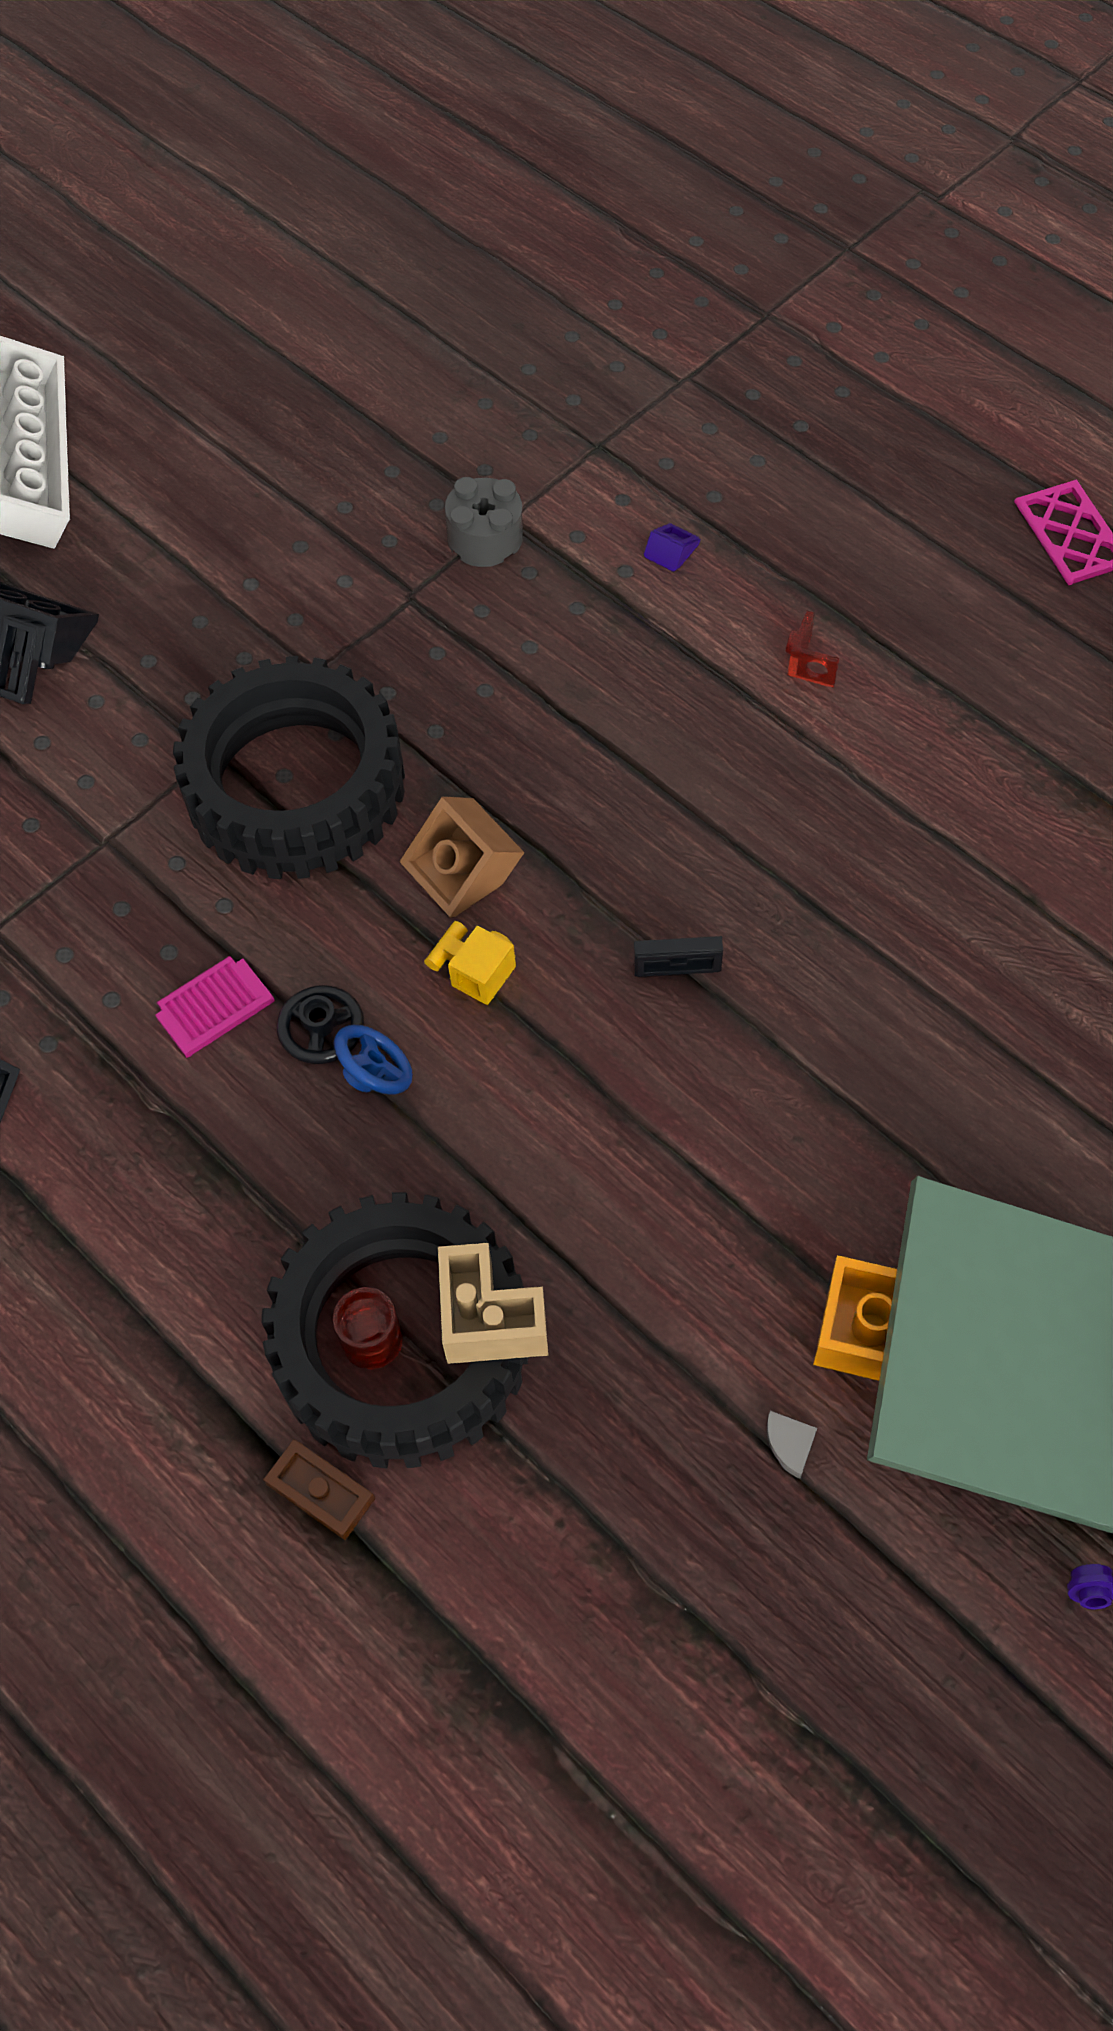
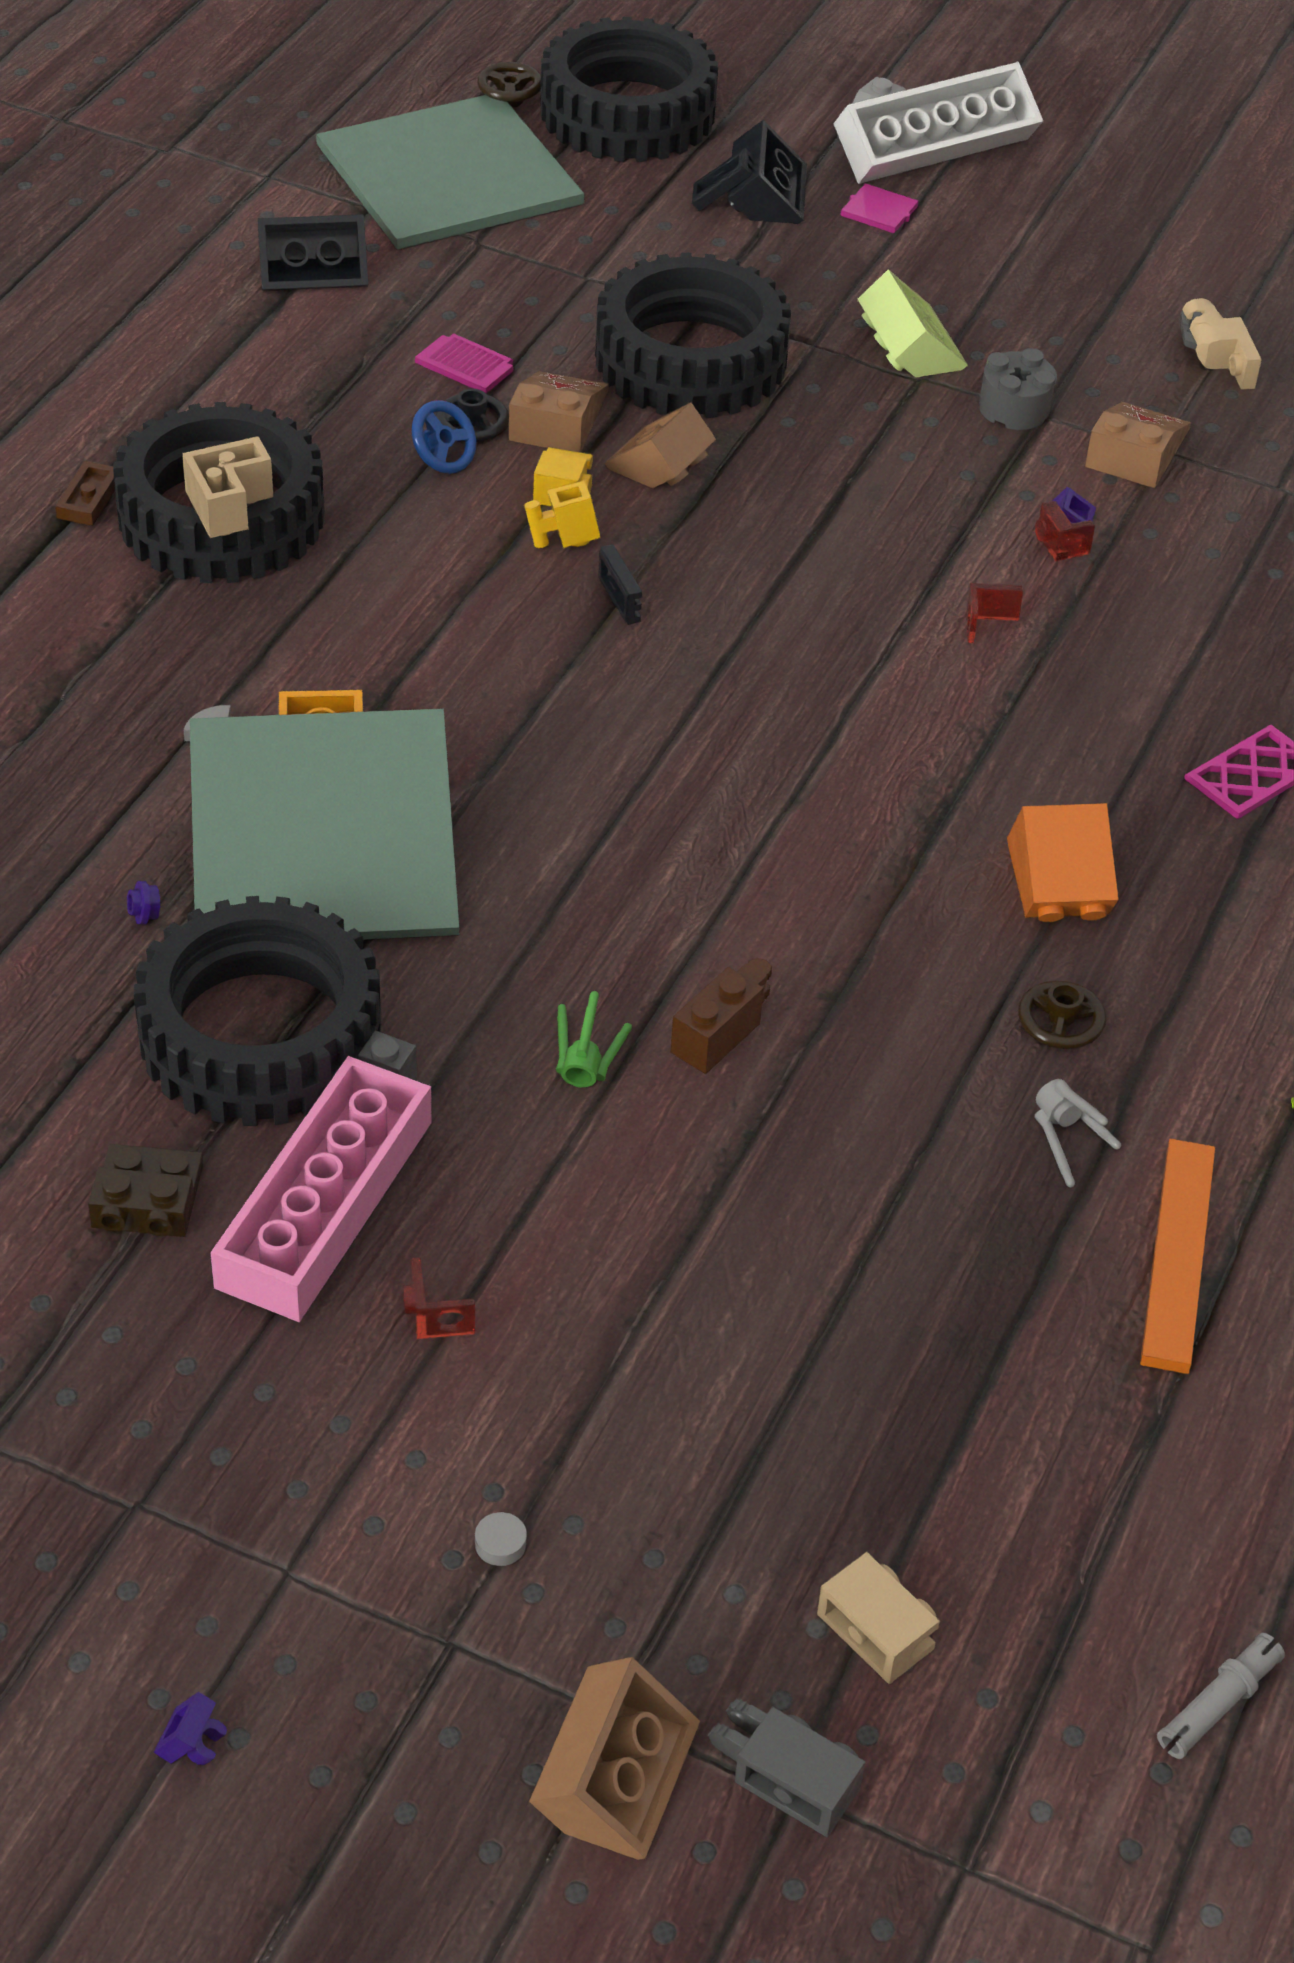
camera: 65 degrees right, 15 degrees down
(108, 543) = (879, 208): none -> dark pink piece
(344, 580) = (909, 329): none -> yellowish green slope
(345, 932) = (555, 410): none -> medium nougat slope
(468, 344) = (1220, 341): none -> tan plate
(560, 970) = (570, 515): none -> yellow brick
(589, 456) = (1135, 443): none -> medium nougat slope
(712, 560) = (1060, 536): none -> clear red bracket

